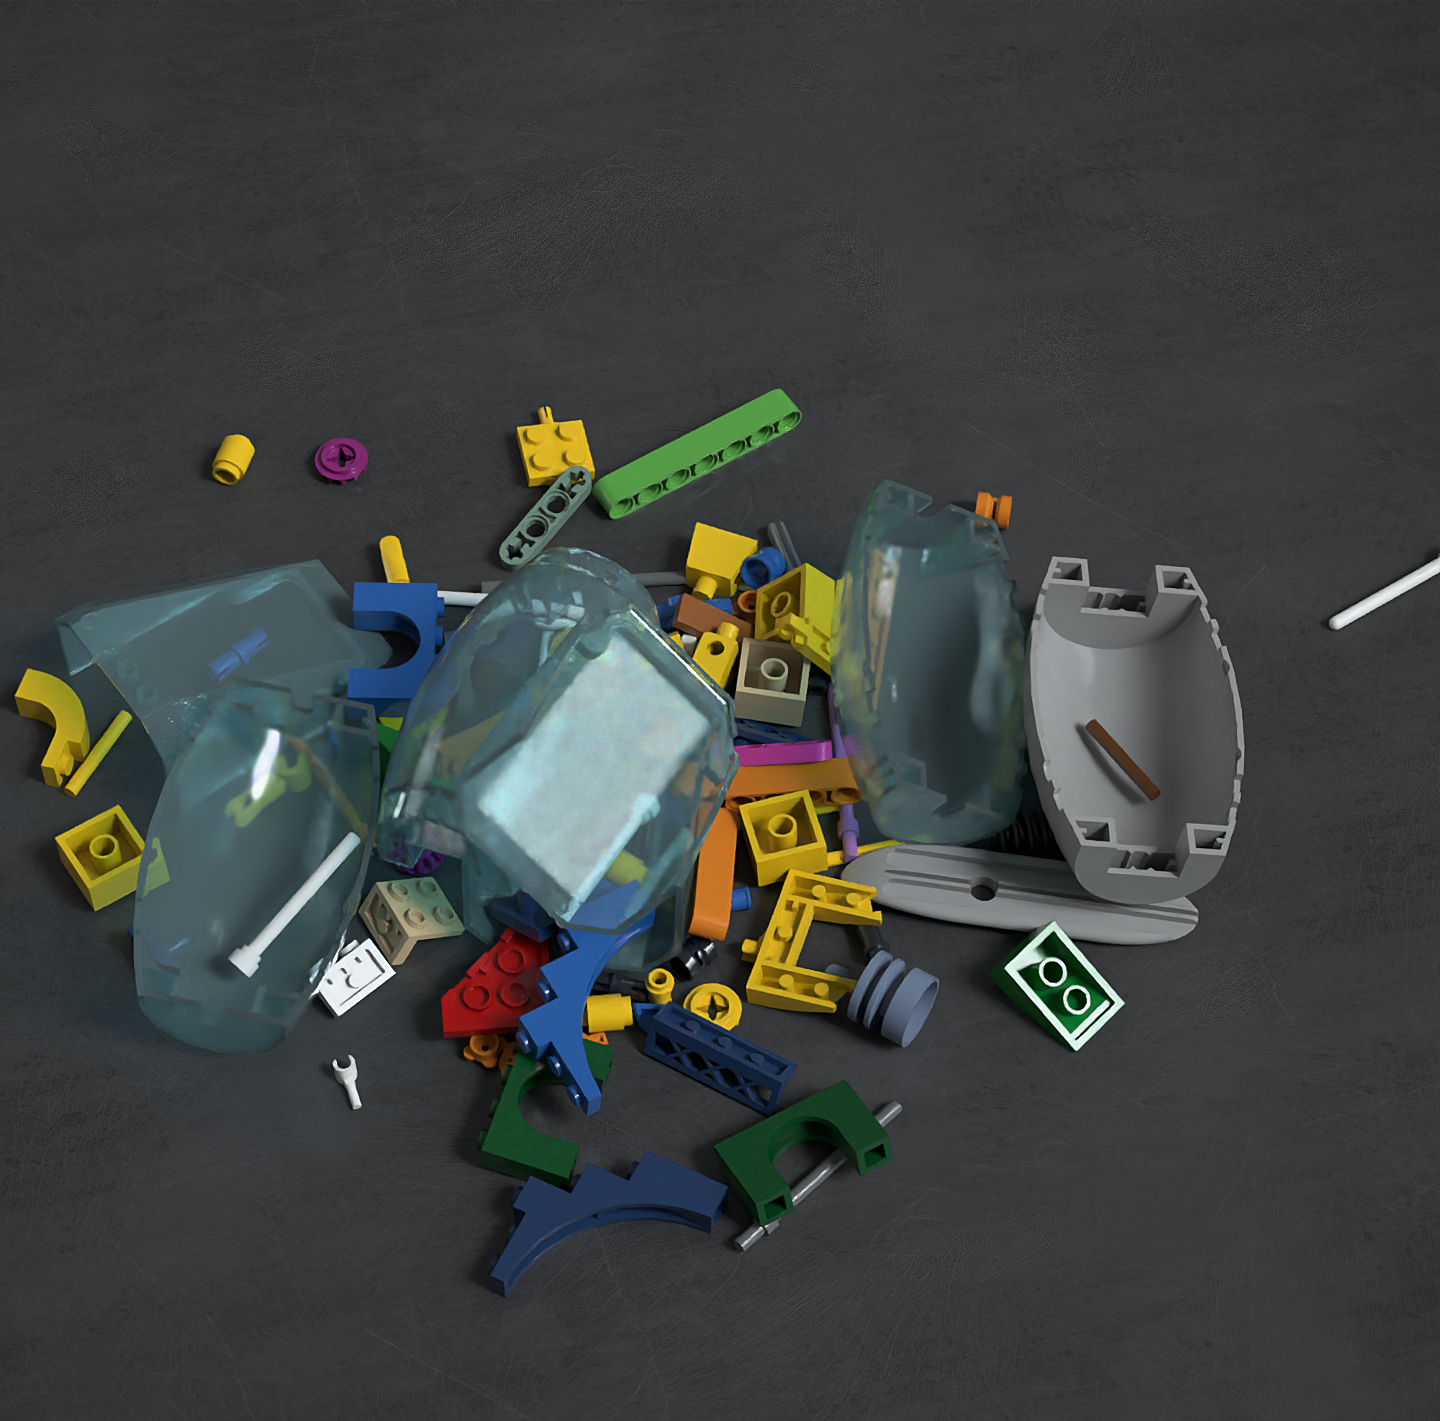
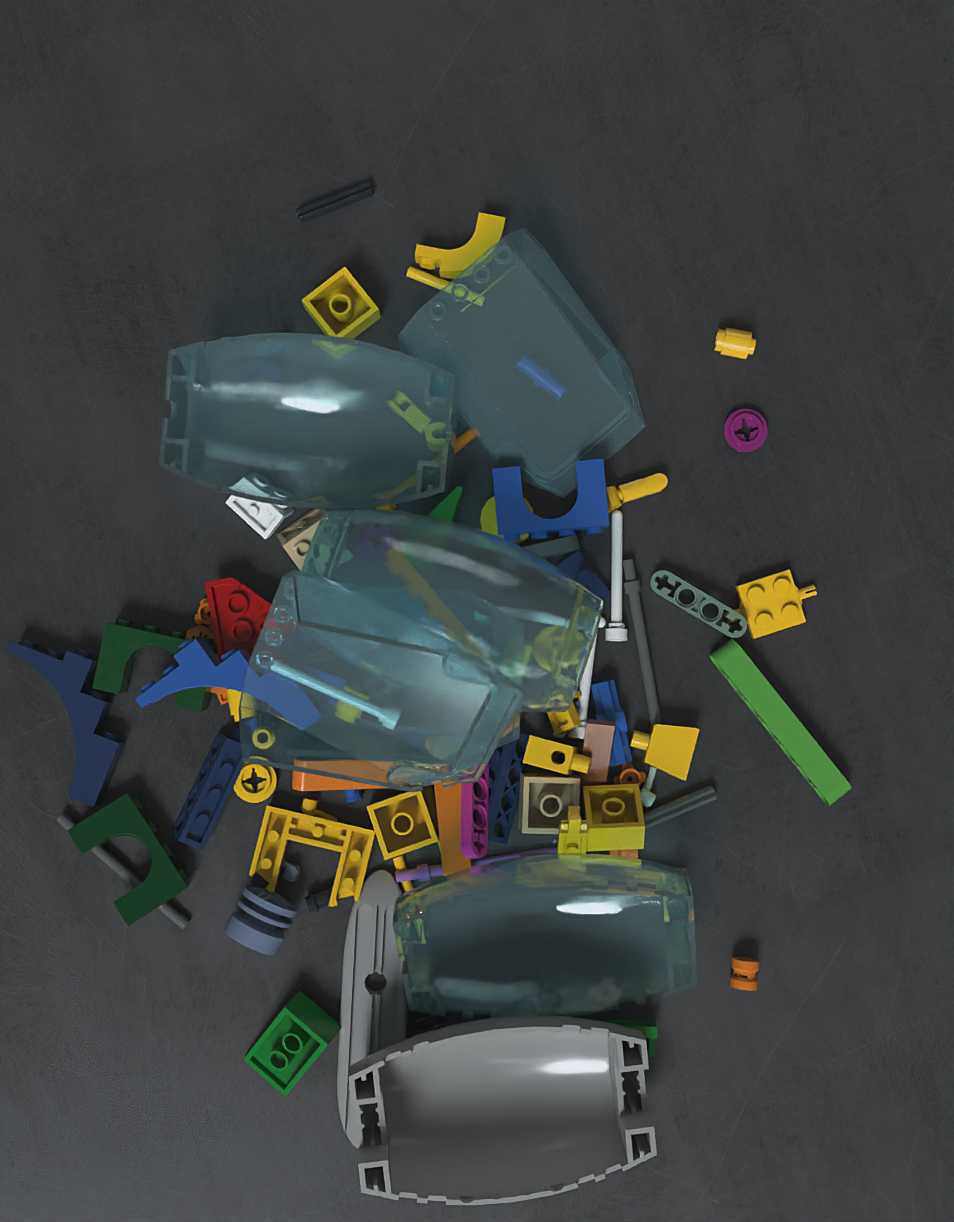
camera: 85 degrees right, 30 degrees up
(248, 956) = (252, 427): white piece -> none
(347, 1077) = (175, 518): white hand -> none
(762, 567) = (663, 786): blue wheel -> none
(1123, 760) = (499, 1091): reddish brown bar -> none

